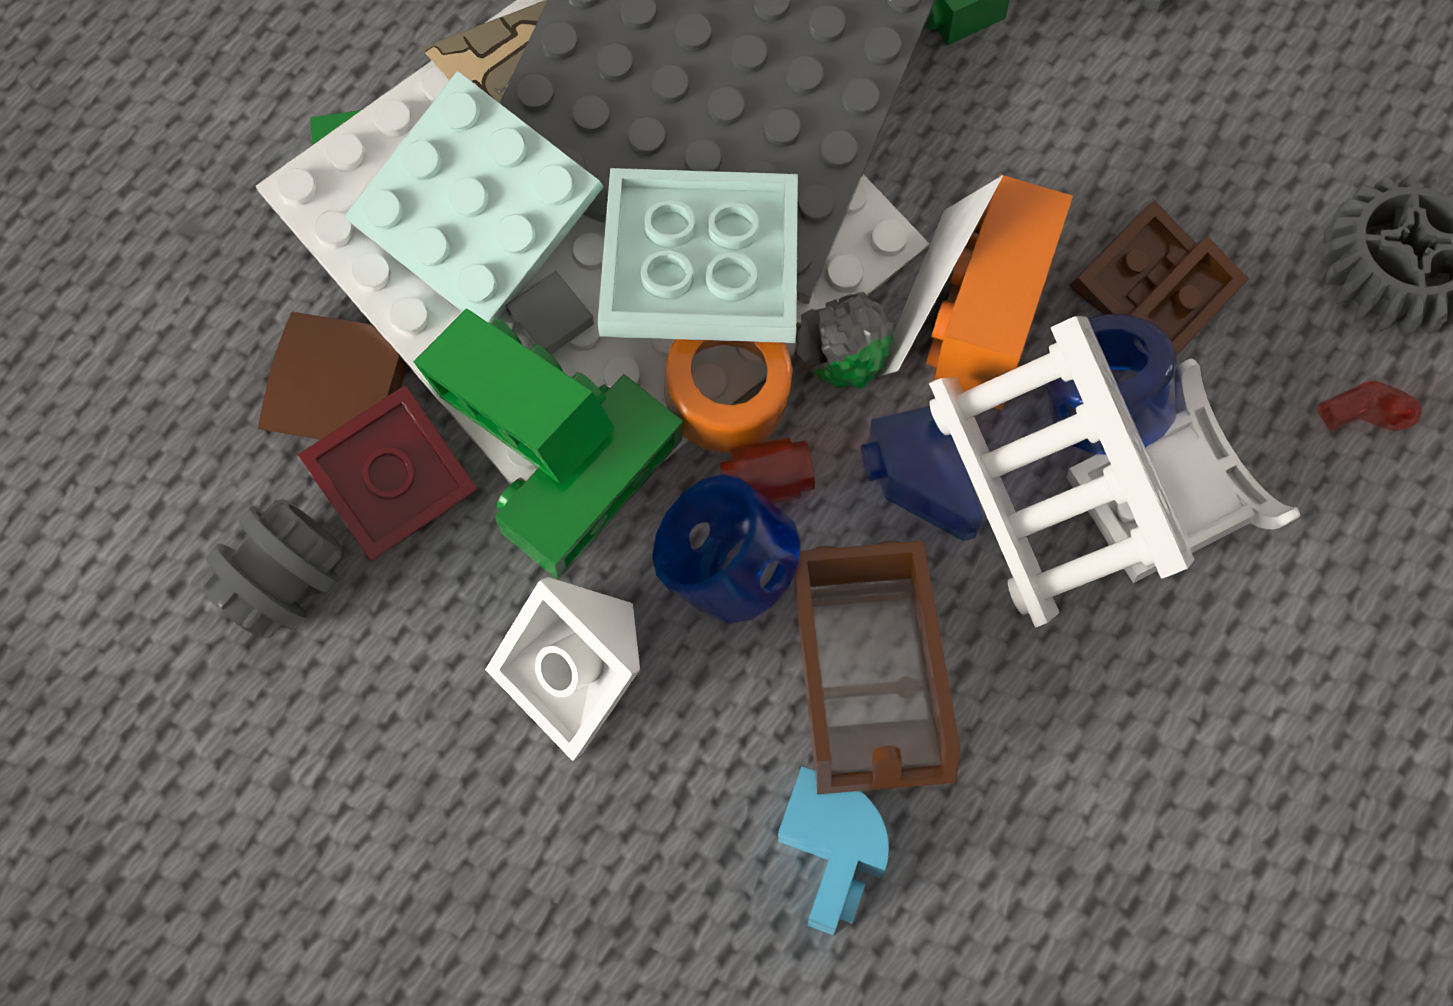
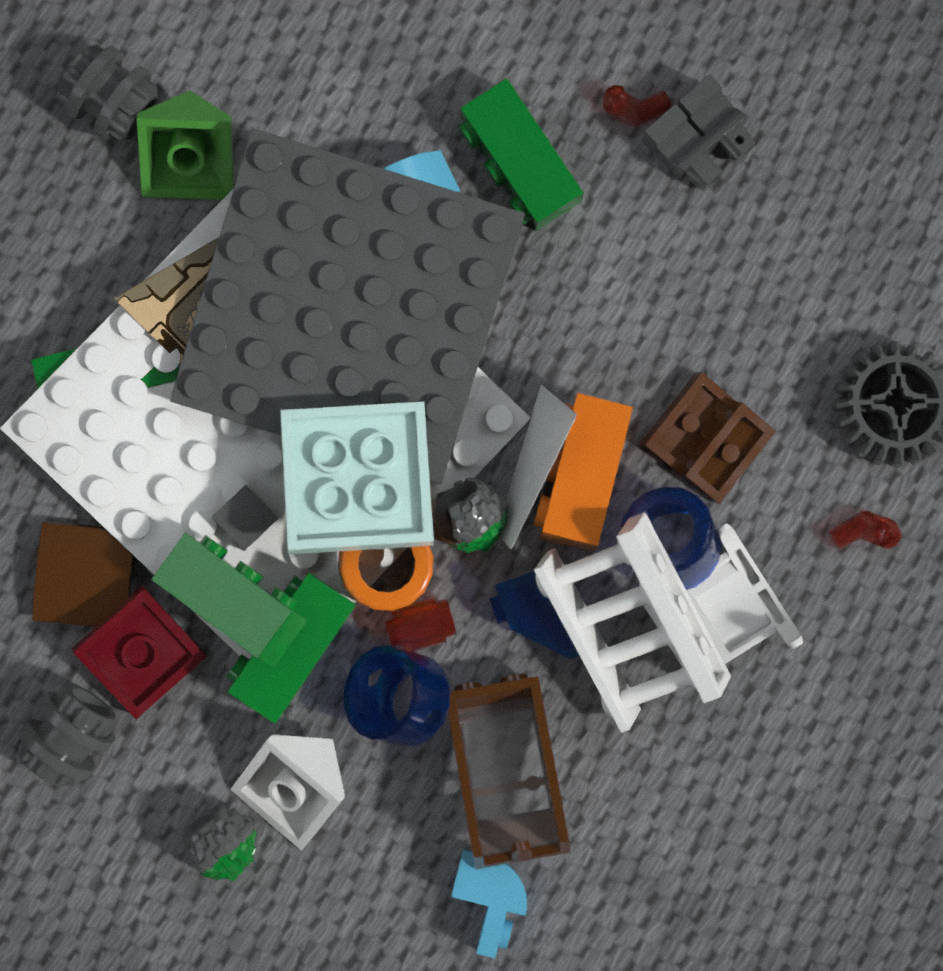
camera: 10 degrees left, 15 degrees up
(459, 732) = (220, 843): none -> dark grey piece
(473, 200) = (176, 438): light aqua plate -> none

